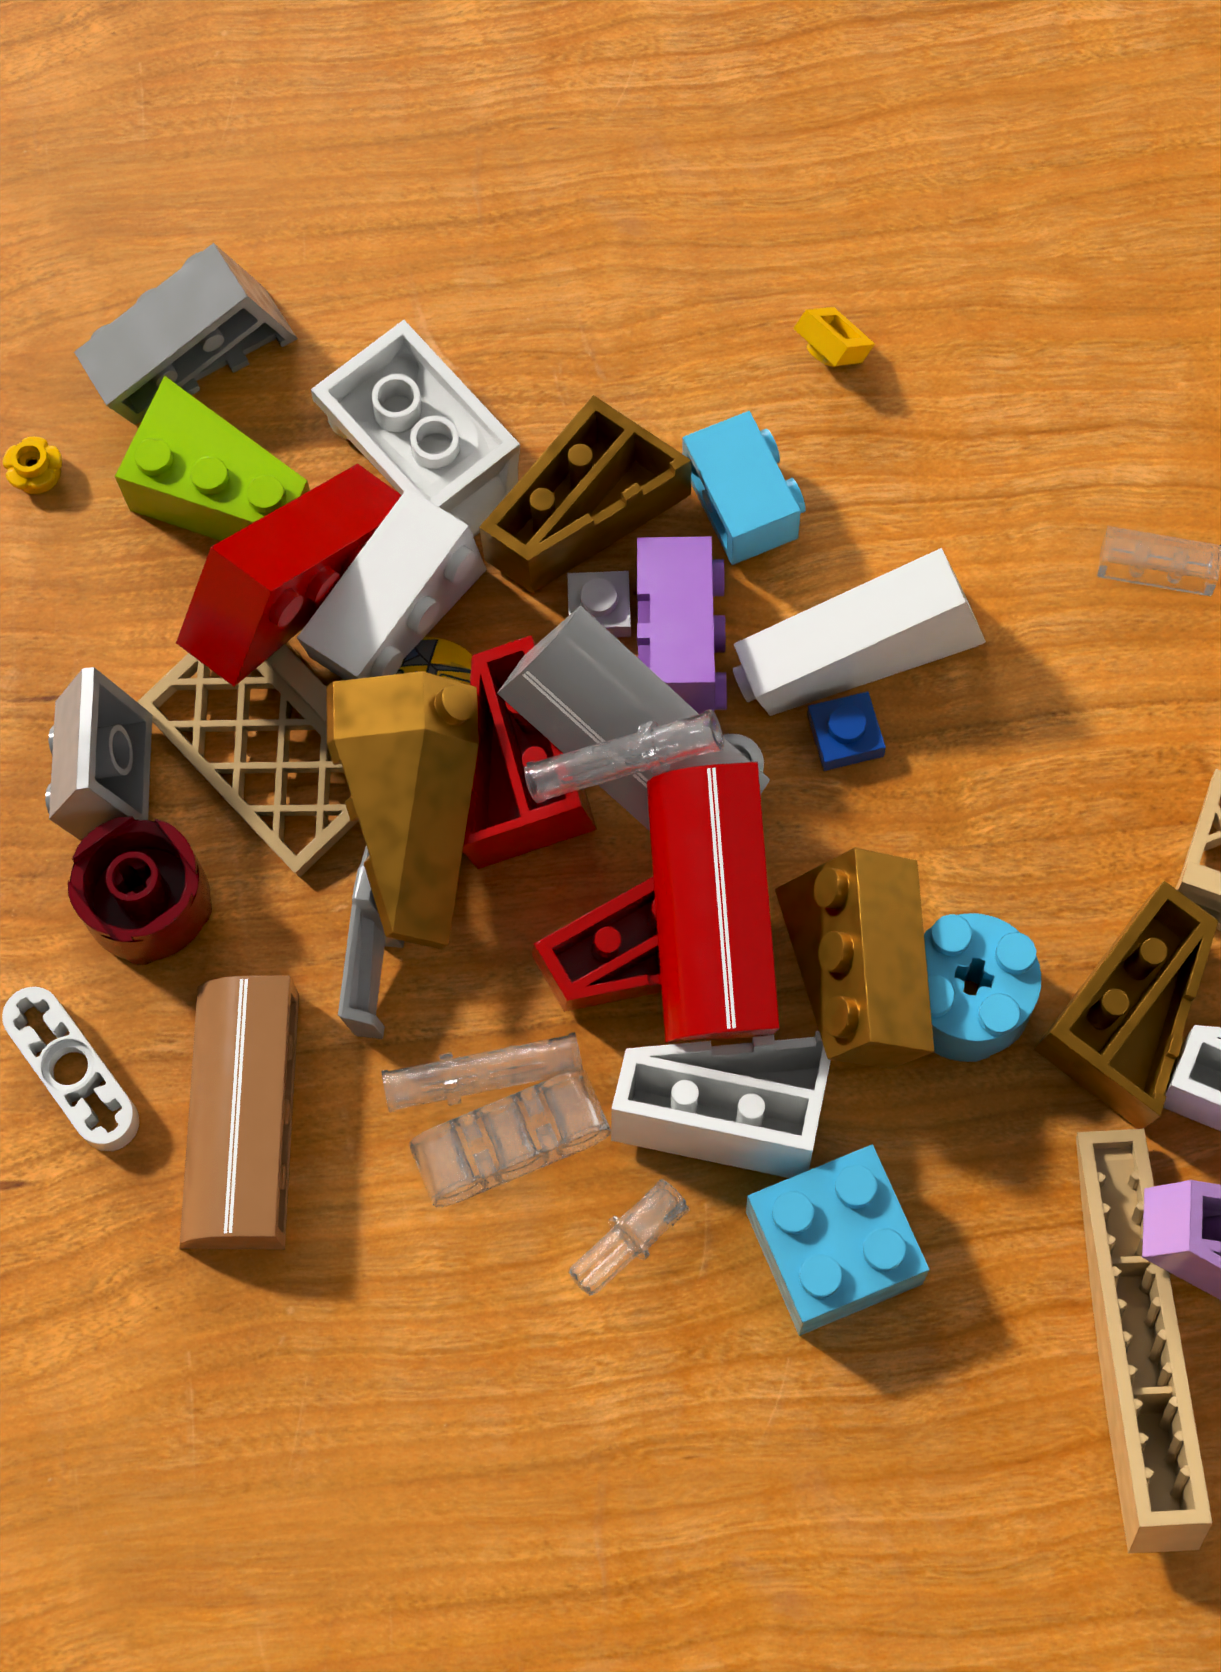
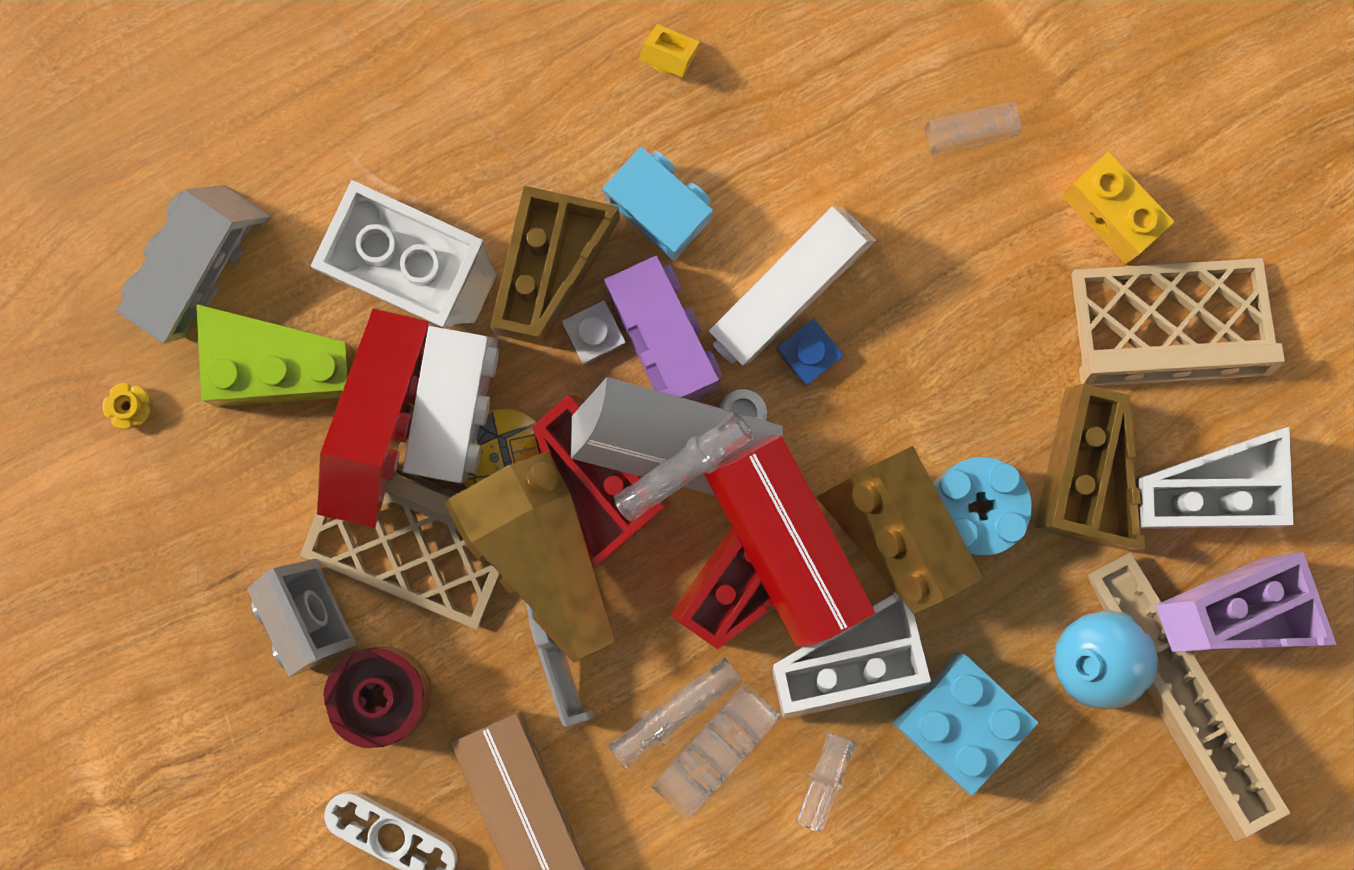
camera: 30 degrees left, 15 degrees up
(1051, 1238) = (1105, 660): none -> medium azure cylinder

